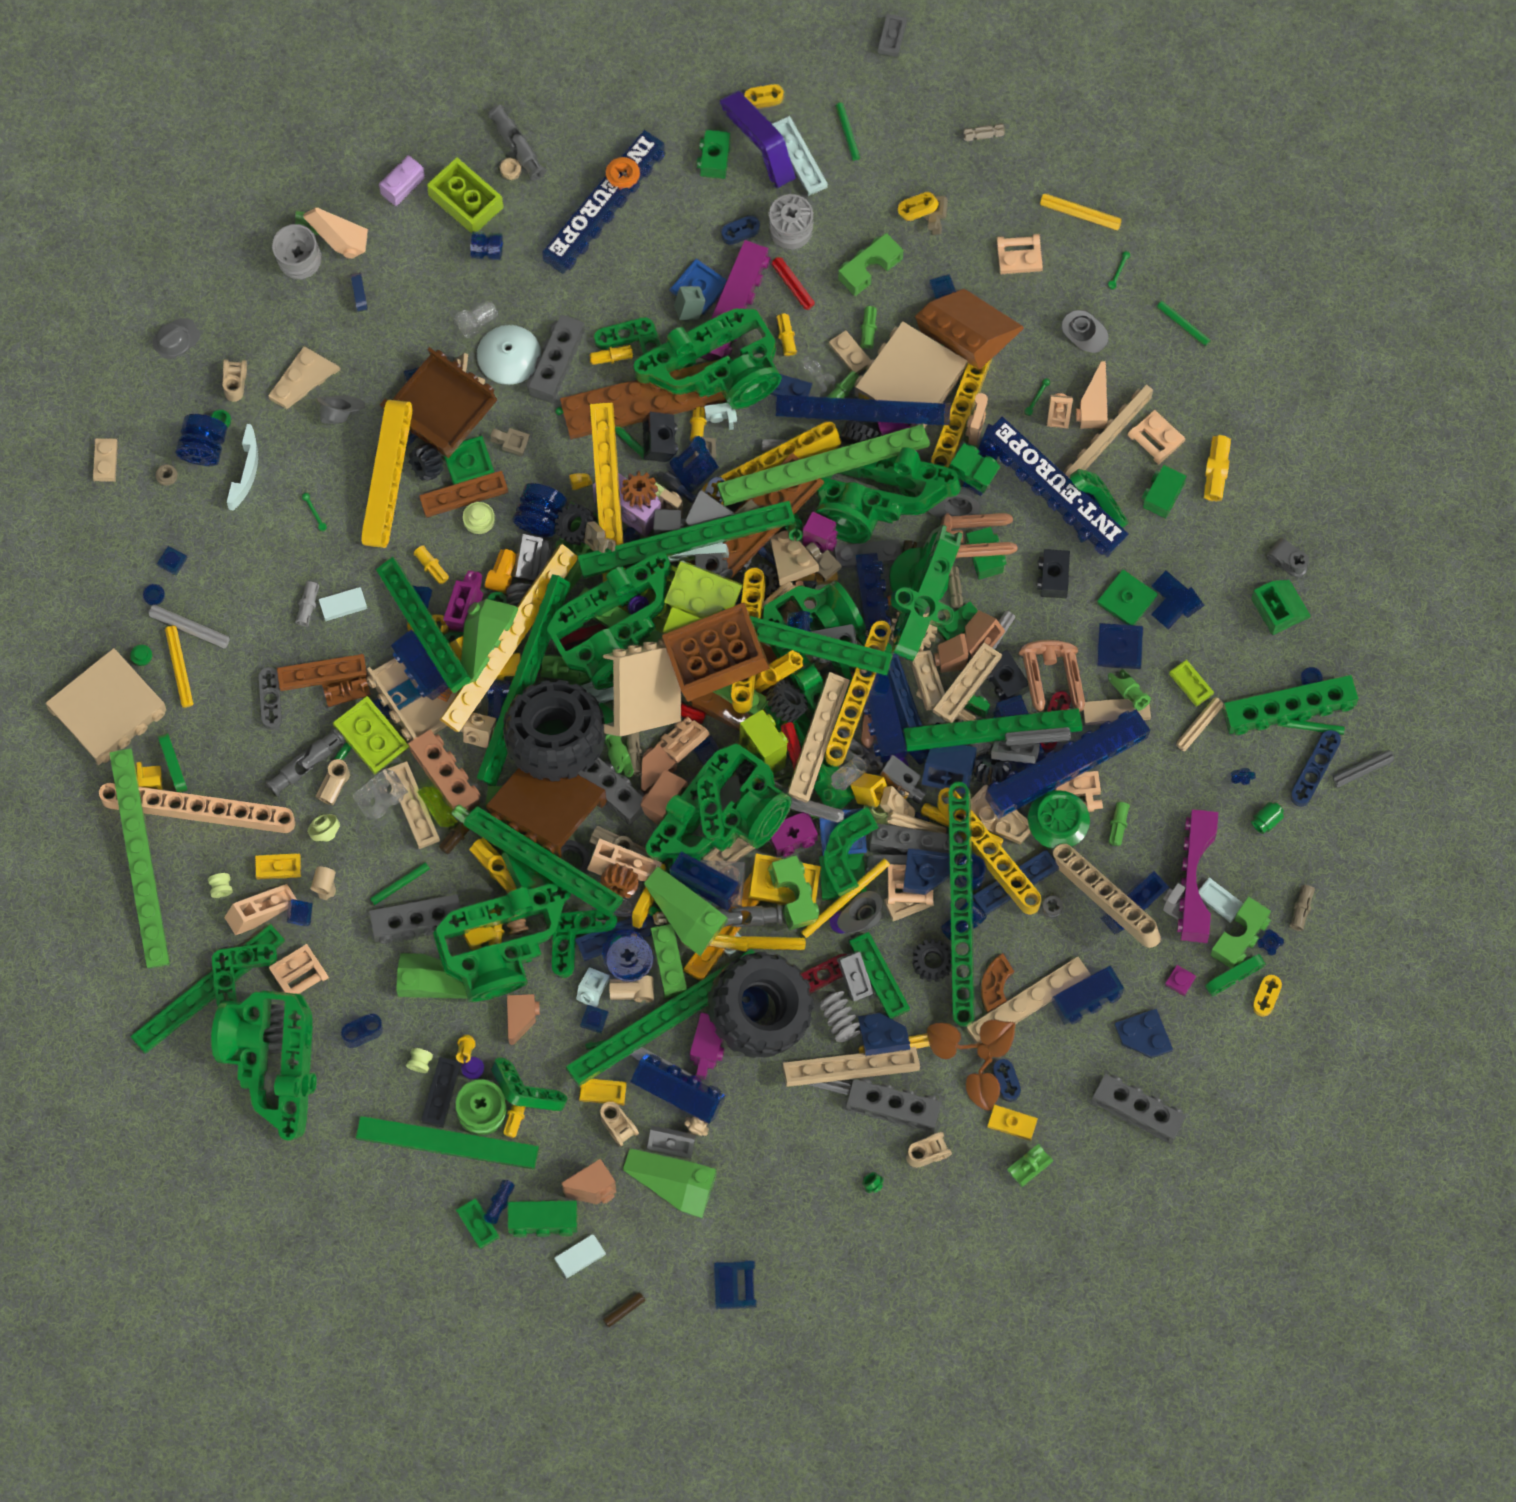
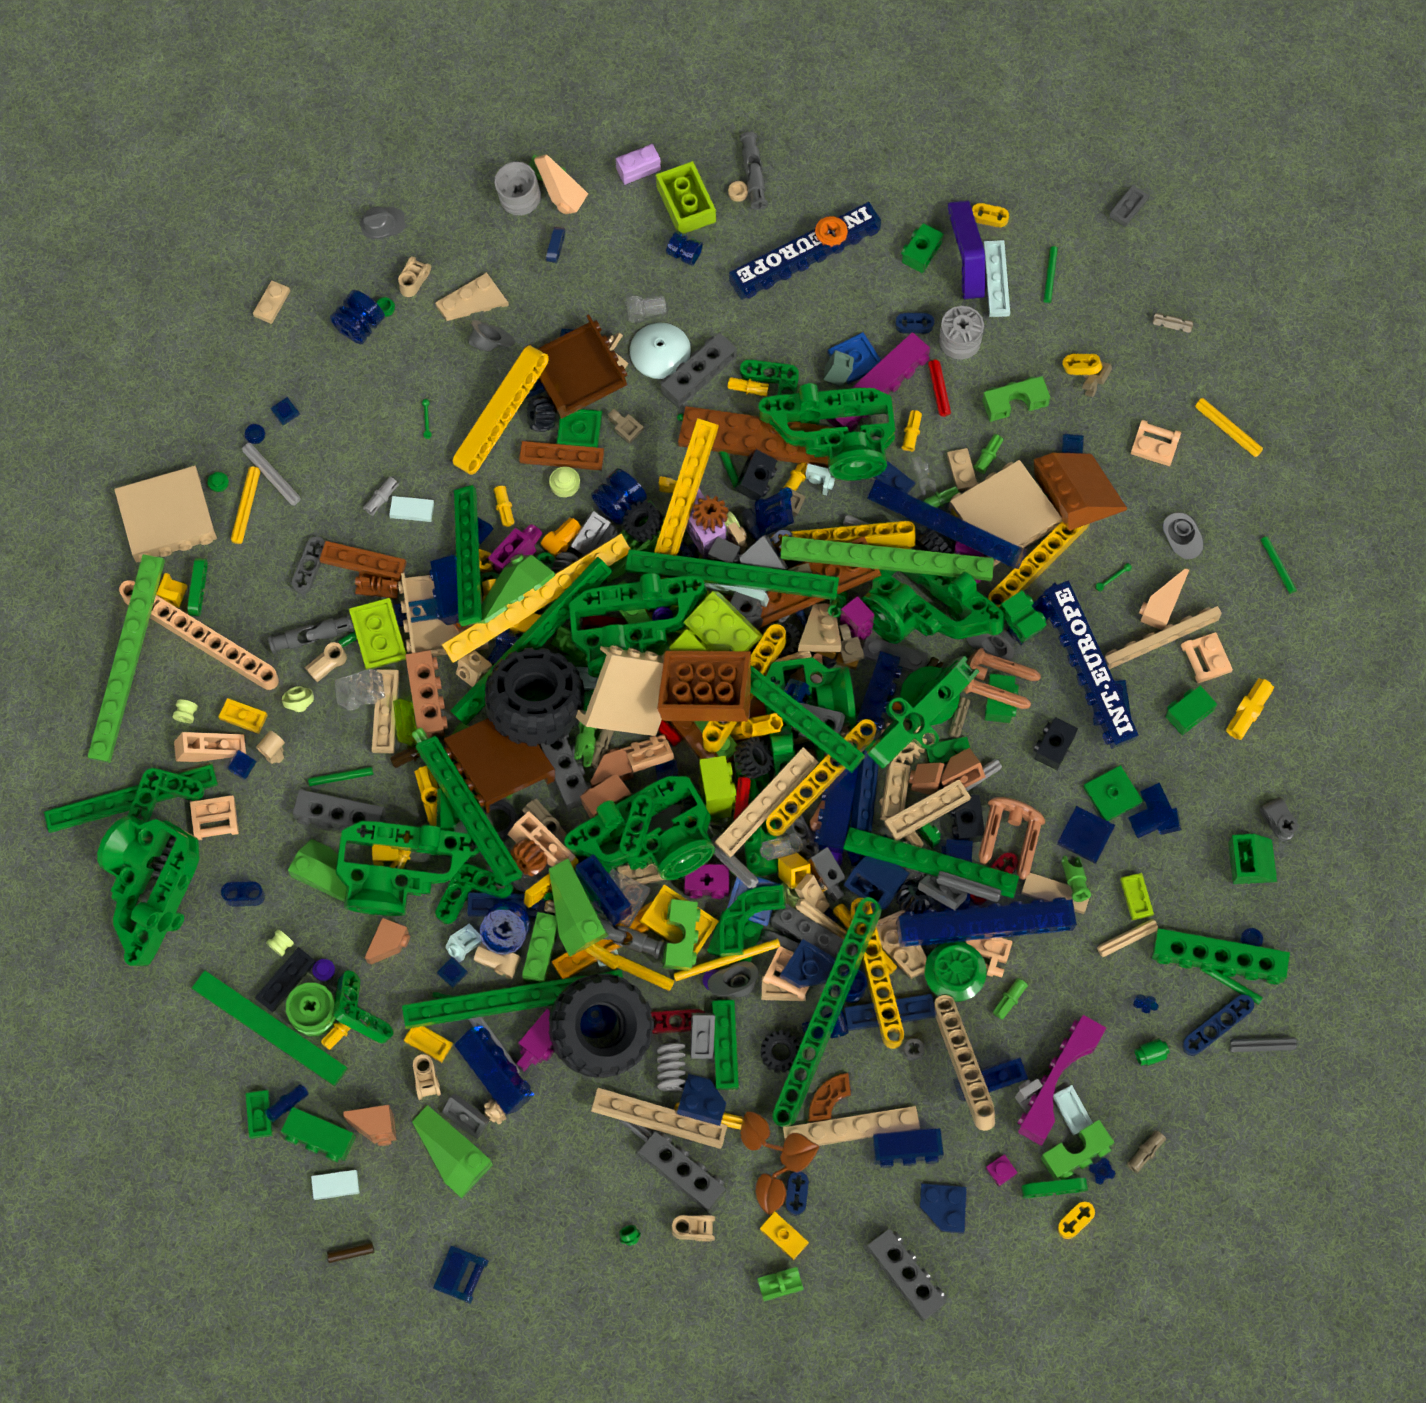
camera: 25 degrees right, 0 degrees up
(166, 469) = (313, 331): dark tan plate -> none
(239, 491) = (368, 374): light aqua slope -> none
(466, 1045) = (327, 946): yellow pin -> none
(517, 927) = (423, 859): medium nougat bush -> none
(596, 538) = (652, 541): dark tan plate -> none
(977, 420) = (1047, 576): light nougat plate -> none
(1059, 410) = (1126, 596): light nougat slope -> none
(1093, 484) = (1129, 678): green beam -> none
(1112, 284) = (1229, 503): green hinge -> none

